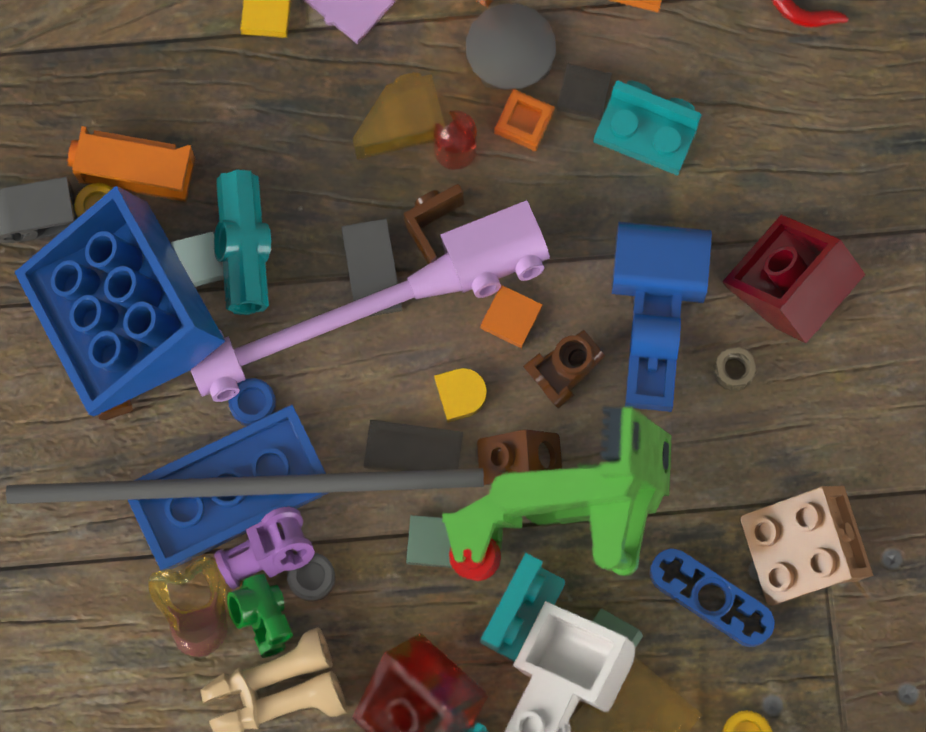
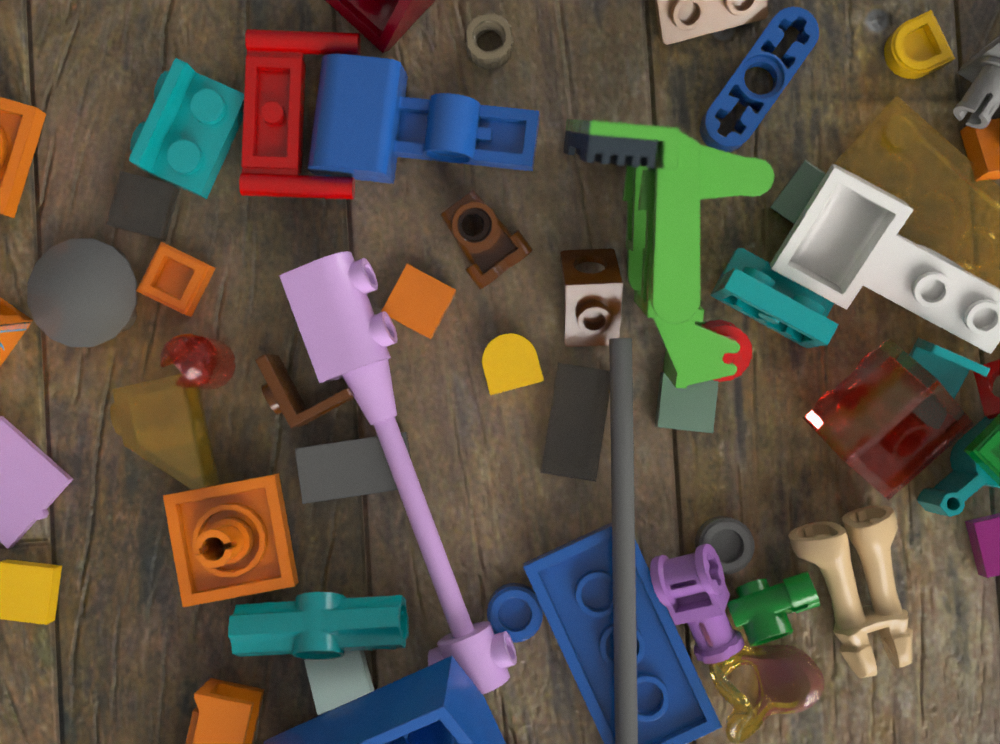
camera: 90 degrees left, 10 degrees up
(311, 170) = (230, 540): none -> orange plate
(663, 195) = (276, 113): none -> red plate

